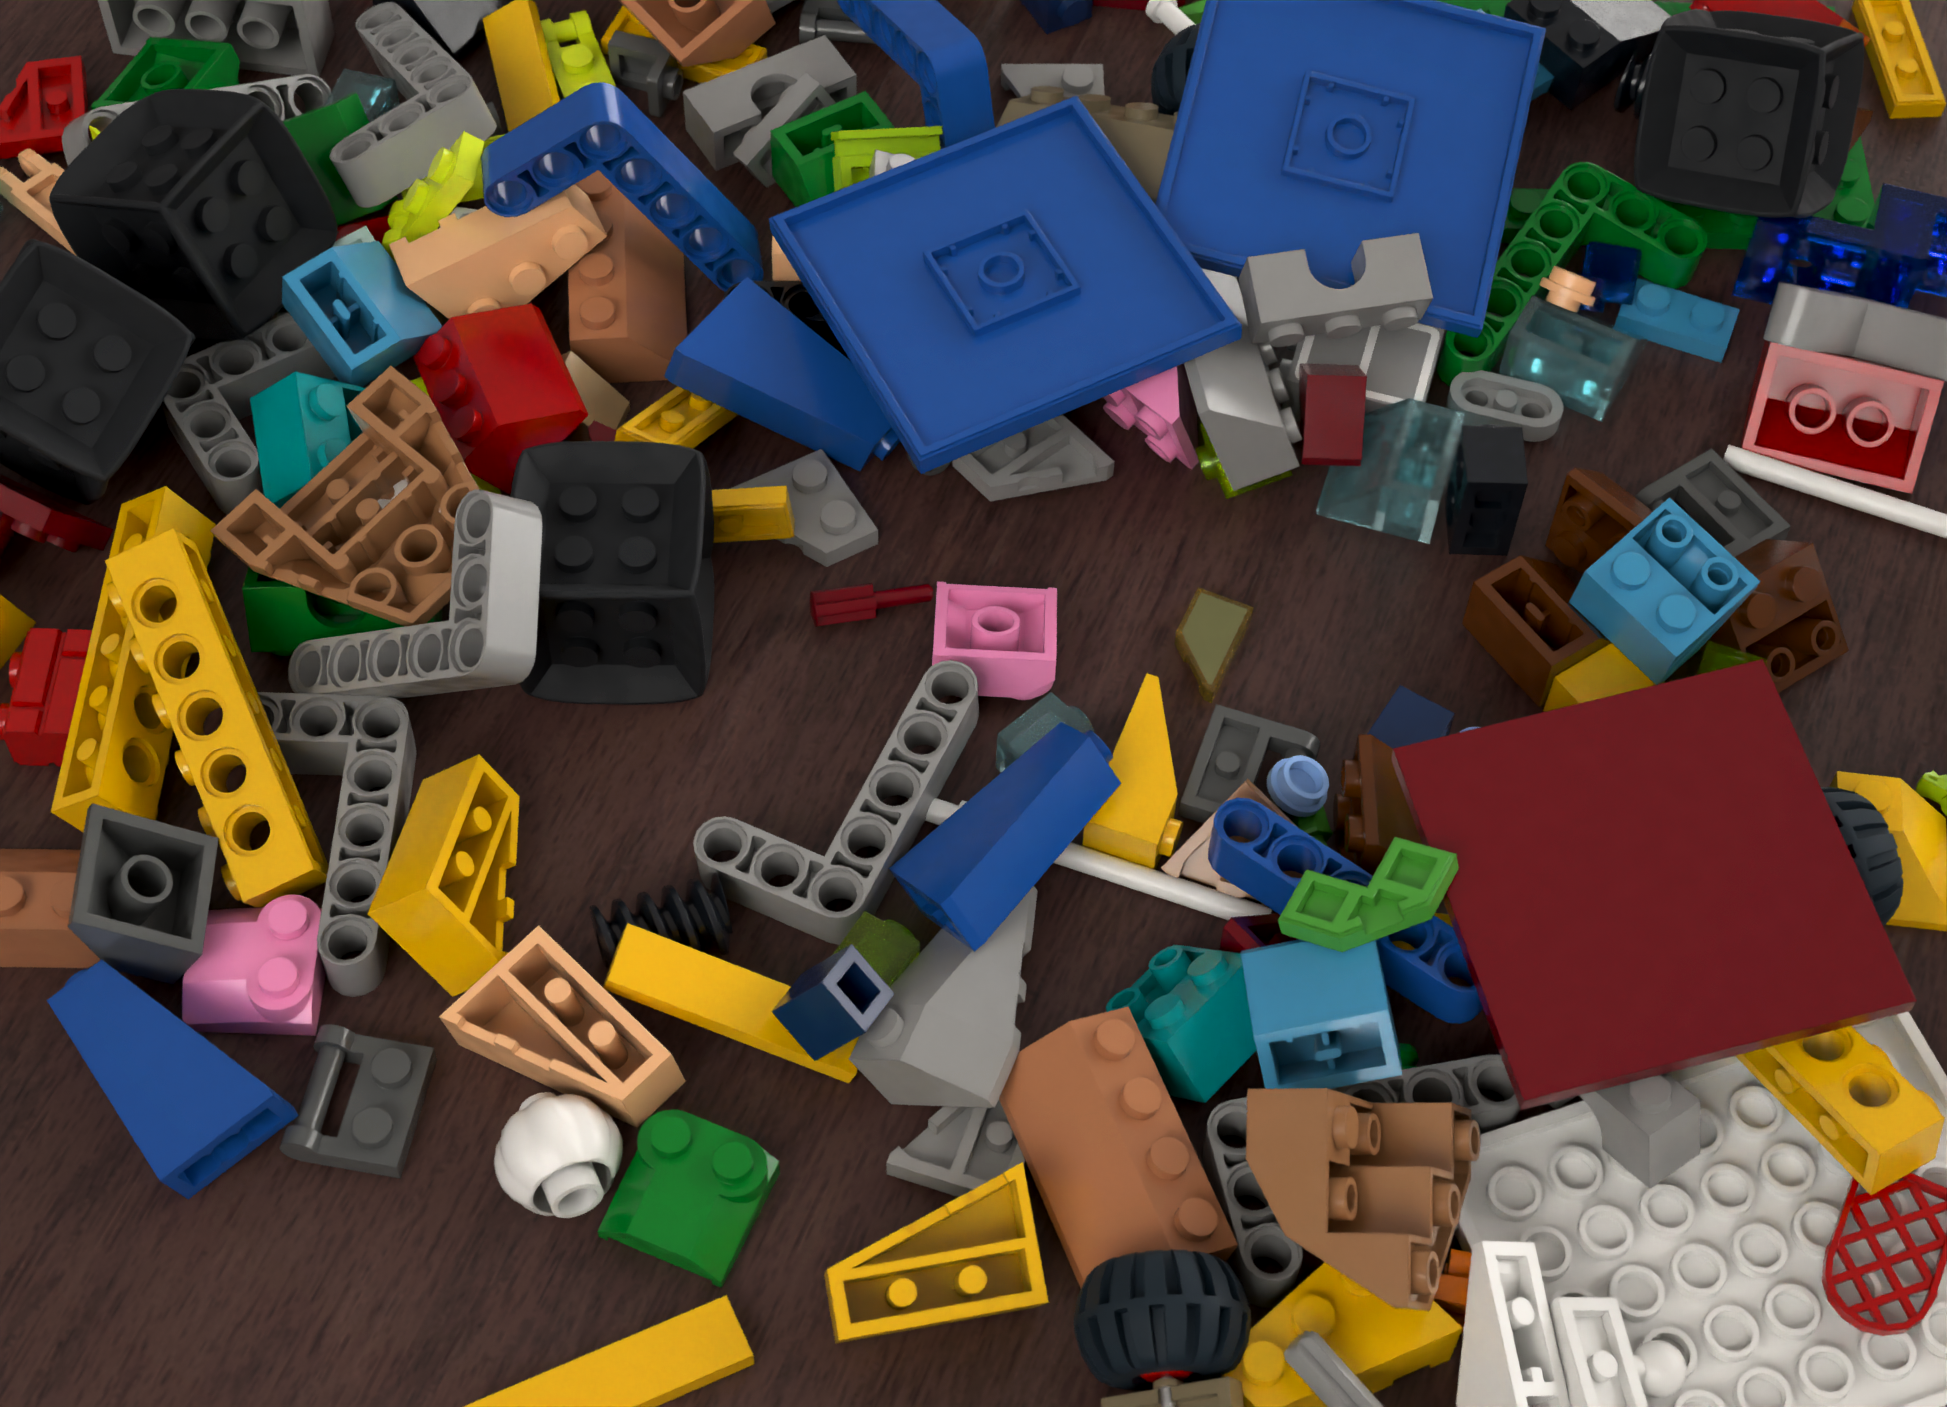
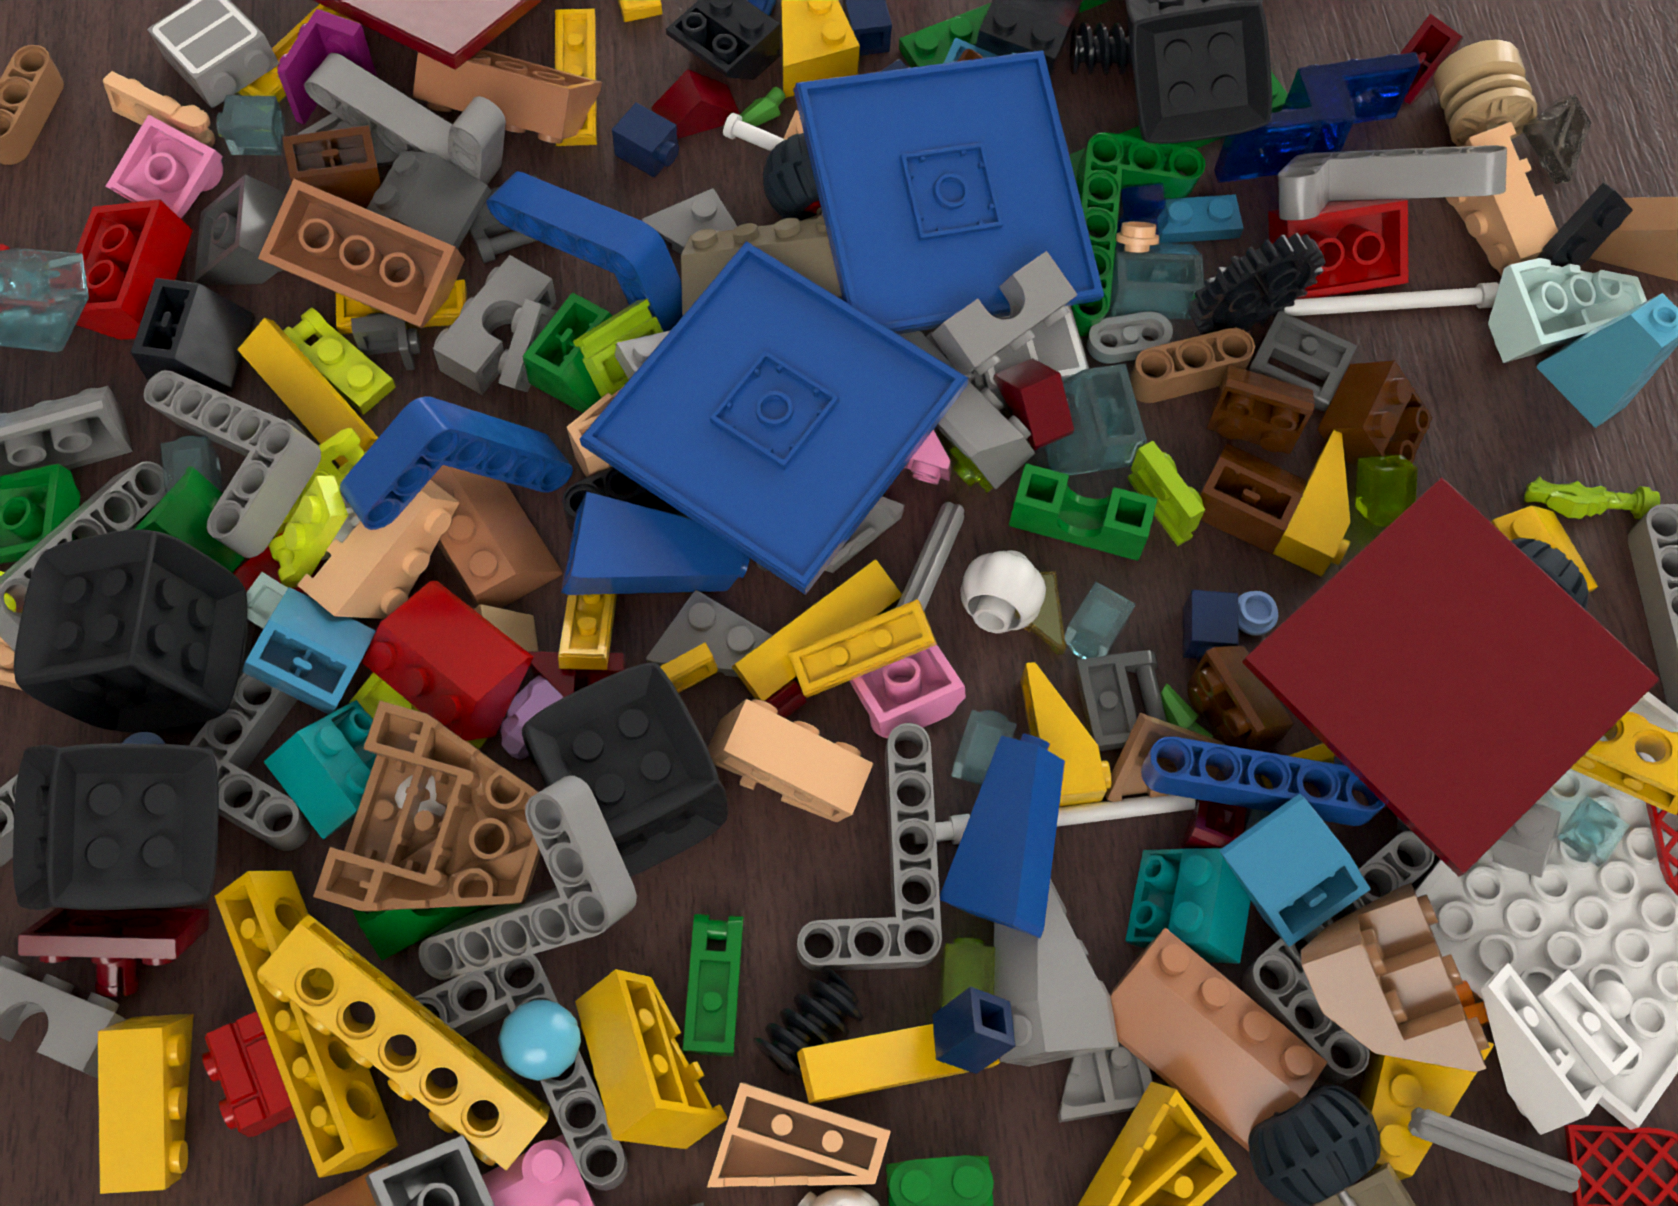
camera: 30 degrees left, 10 degrees up
(356, 786) = (539, 1039): none -> medium azure hair
(584, 844) = (713, 987): none -> green plate
(809, 651) = (790, 760): none -> light nougat wedge
(933, 546) = (852, 602): none -> yellow tile
(963, 573) = (862, 648): none -> yellow tile
(1090, 542) = (933, 555): none -> light grey axle
(1173, 589) = (997, 586): none -> white plant
(1269, 677) = (1098, 622): none -> clear light blue brick
(1282, 531) = (1107, 524): none -> green arch
(1298, 785) = (1167, 696): light blue plate -> none
(1347, 915) = (1287, 796): bright green tile -> none
(1437, 578) = (1177, 506): none -> lime plate
(1485, 490) = (1168, 408): black brick -> none
(1558, 448) = (1176, 378): none -> medium nougat beam
(1663, 591) = (1333, 445): dark azure slope -> none
(1728, 394) = (1257, 284): none -> black gear
(1751, 1167) = (1593, 831): none -> clear light blue plate

